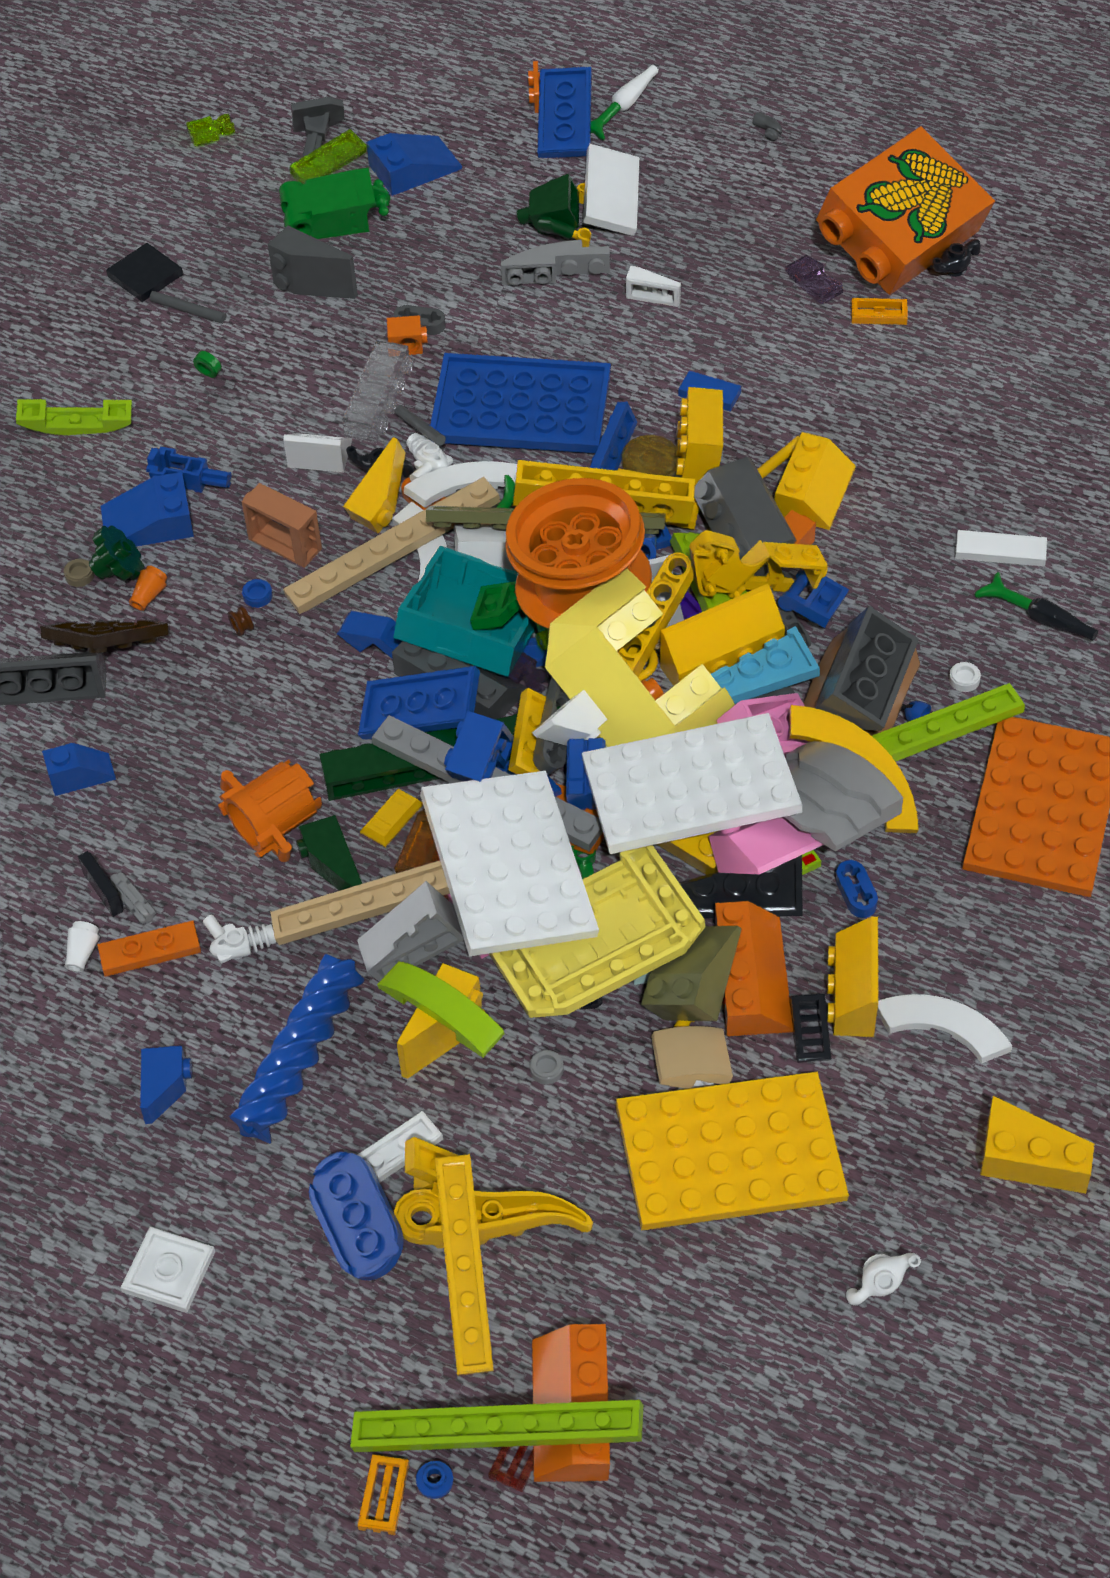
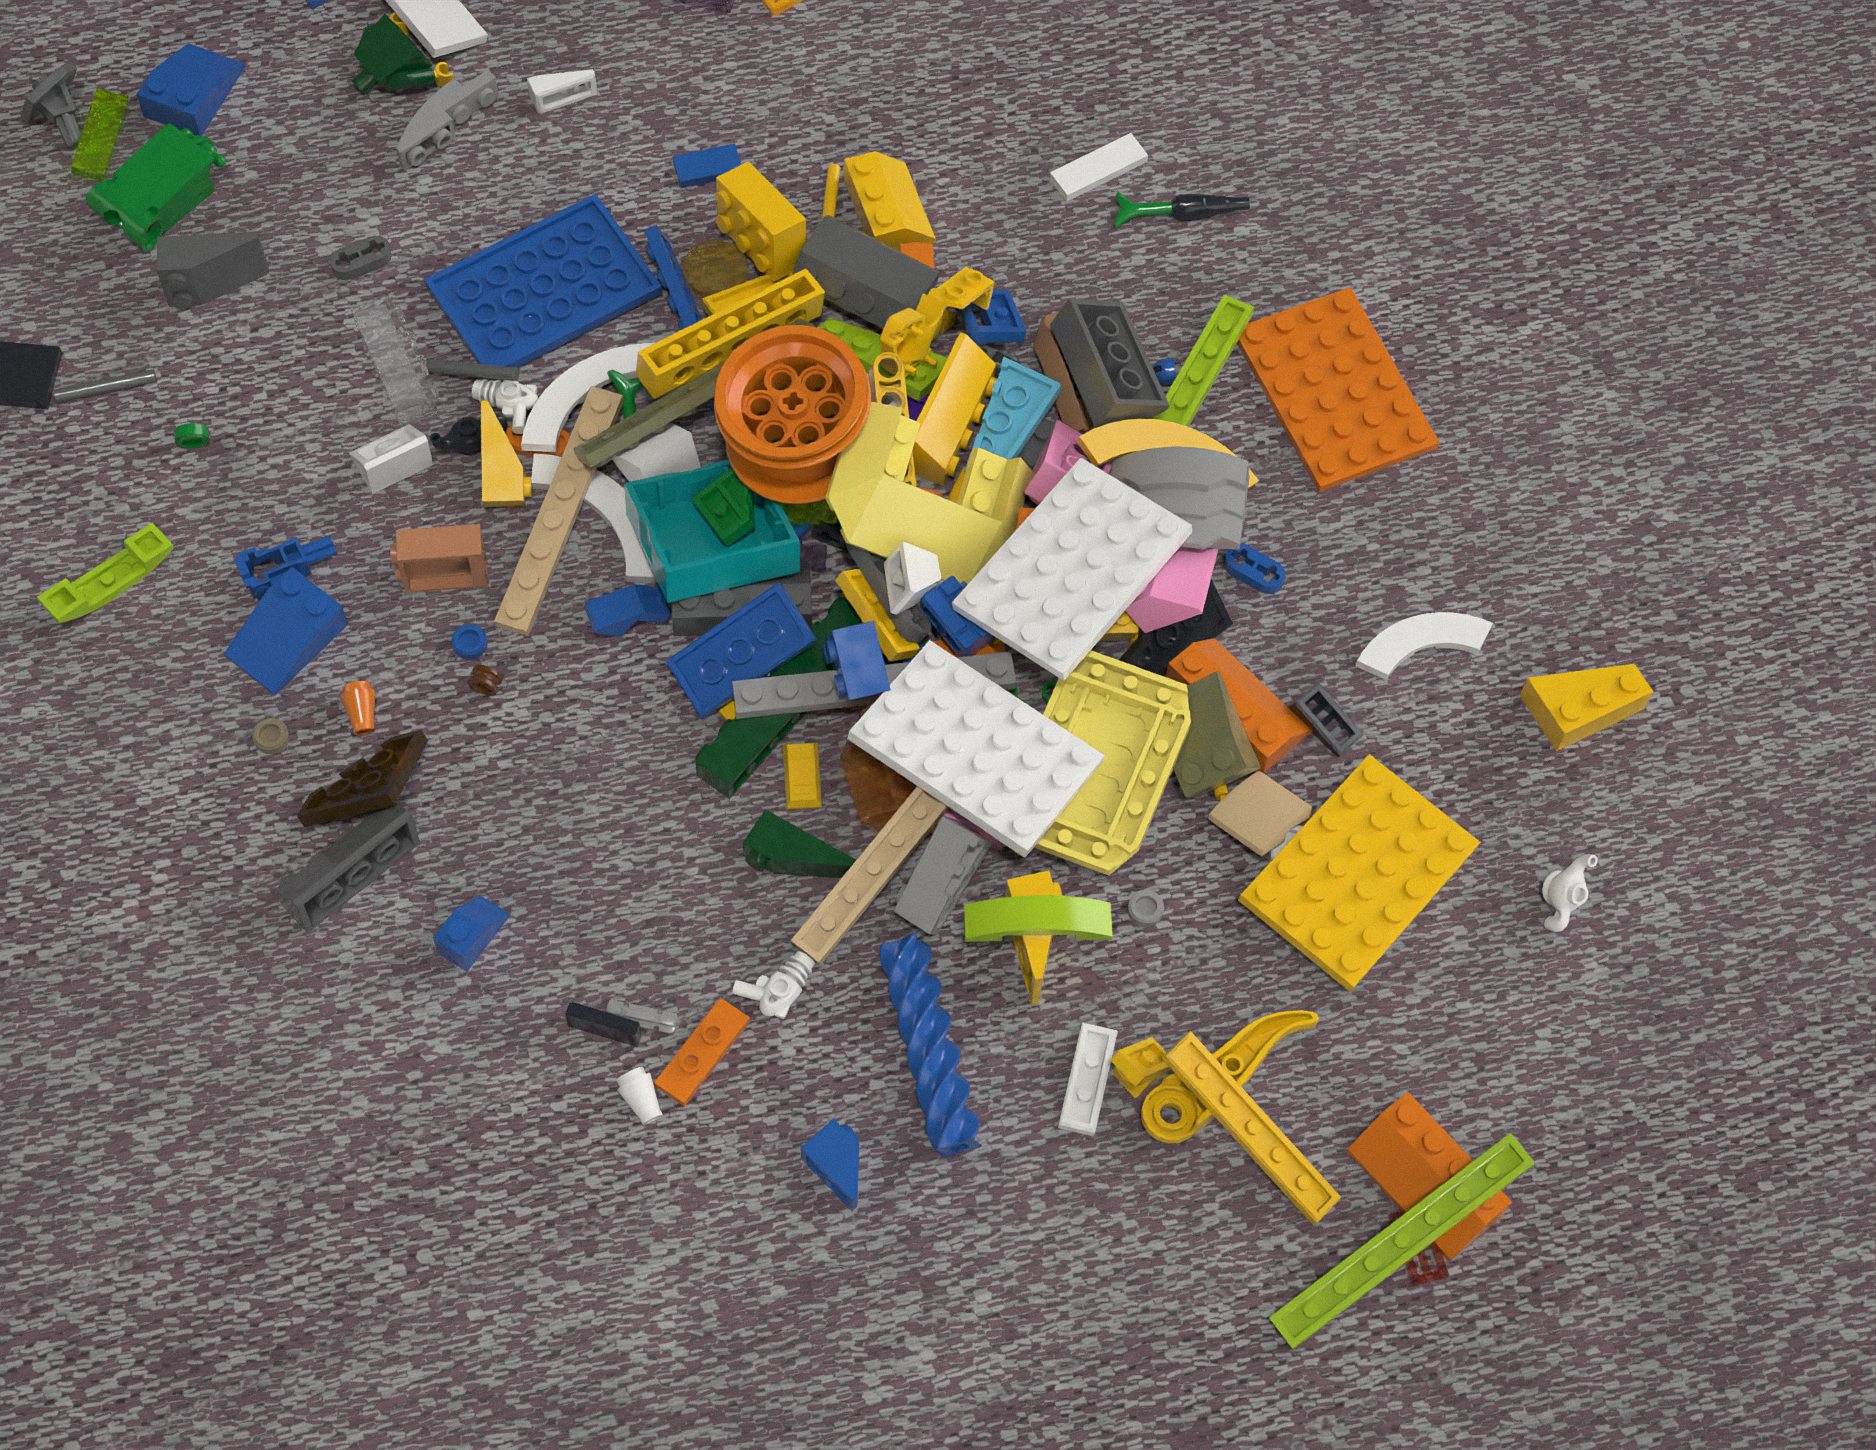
camera: 45 degrees left, 10 degrees up
(115, 555) = (301, 696): dark green plant -> none
(168, 1269) = (998, 1320): white tile -> none
(269, 806) = (697, 843): orange container -> none
(356, 1216) = (1116, 1154): blue tile -> none
(378, 1524) = (1365, 1394): light orange tile -> none
(408, 332) = (366, 281): orange brick -> none
(438, 1489) = (1374, 1332): blue plate -> none
(854, 980) = (1333, 649): yellow slope -> none
(964, 677) = (1172, 311): white tile -> none

